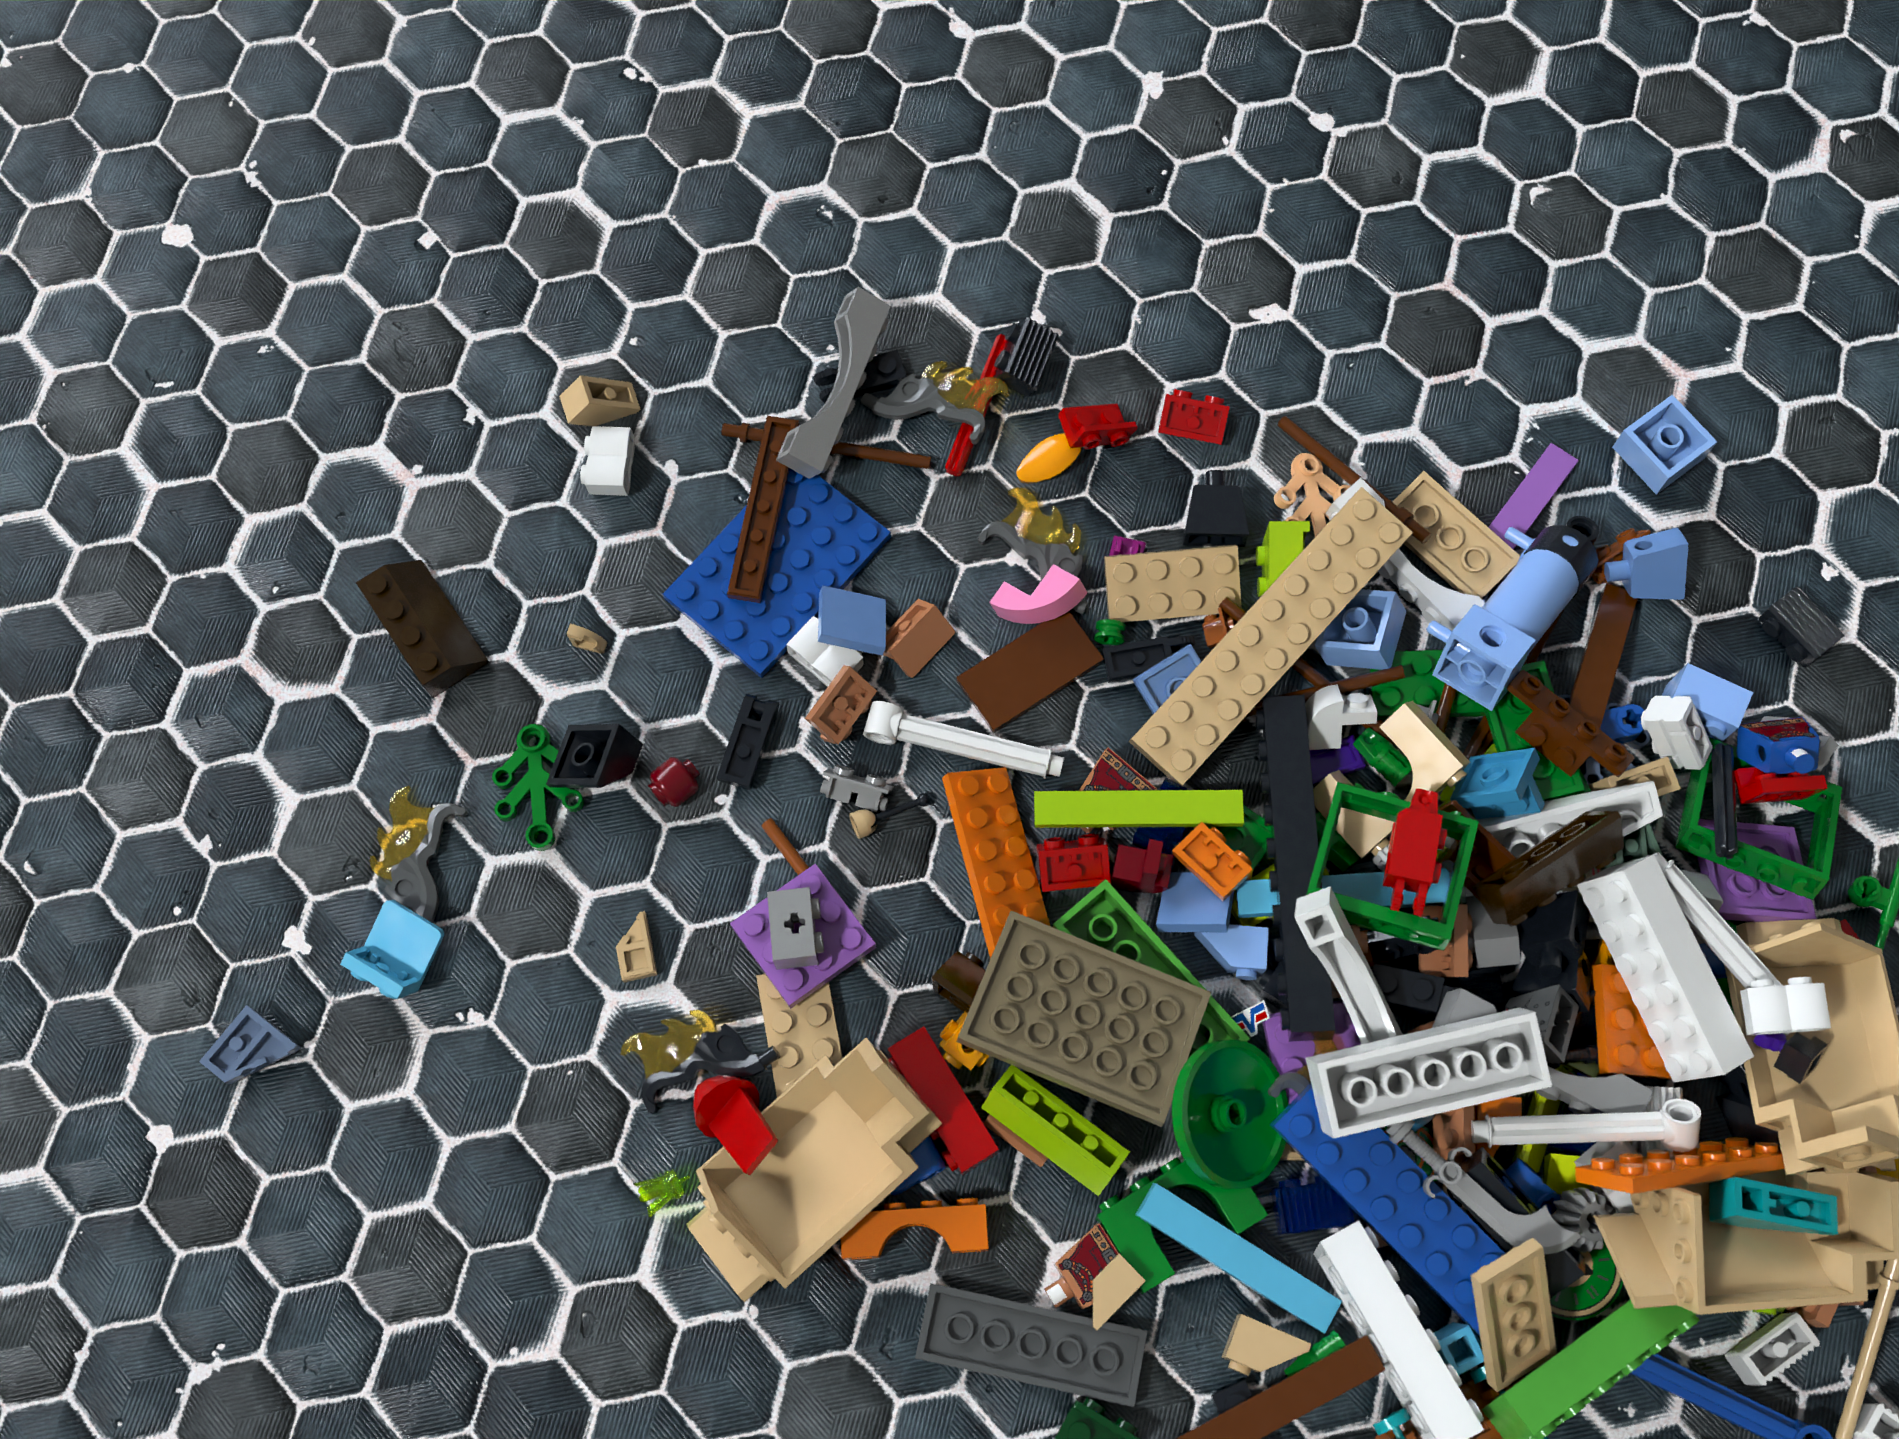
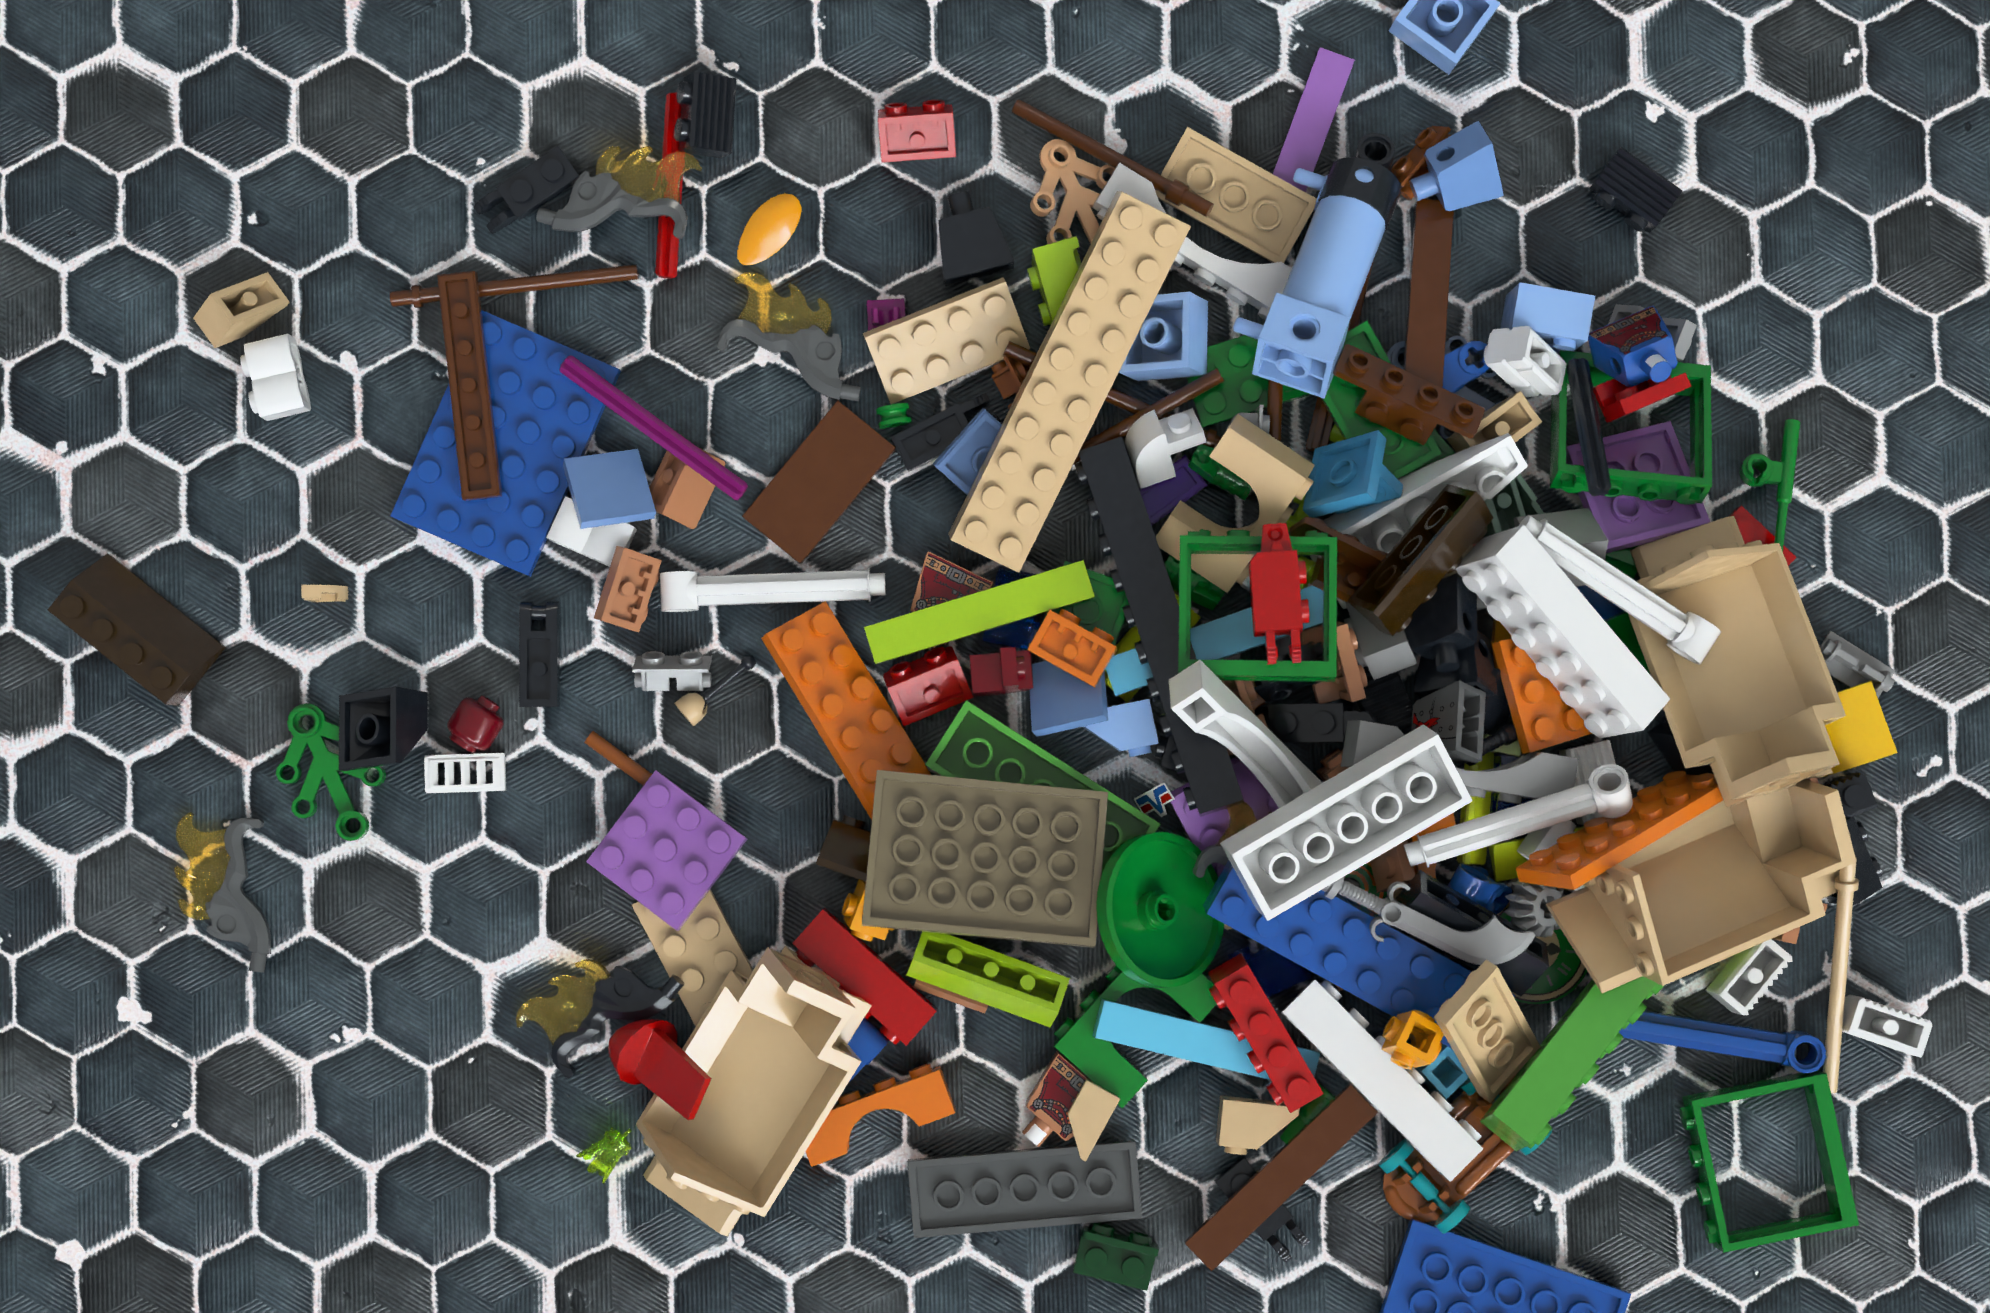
camera: 20 degrees left, 15 degrees up
(247, 1047) = (125, 1138): sand blue wing -> none
(396, 951) = (244, 996): medium azure bracket -> none
(621, 816) = (432, 777): none -> white slope
(636, 951) = (497, 915): tan tile -> none
(788, 908) = (639, 839): light grey brick -> none
(857, 328) = (506, 138): light grey arch -> none
(906, 581) = (653, 427): none -> magenta axle
(1052, 598) = (819, 399): bright pink brick -> none
(1095, 426) = (809, 177): red bracket -> none
(1298, 1261) = (1265, 1032): none -> red brick
(1440, 1301) = (1424, 1038): none -> light orange brick
(1771, 1207) = (1719, 846): teal slope -> none
(1785, 1009) = (1690, 644): white brick -> none
(1797, 1055) = (1713, 684): black piece -> none

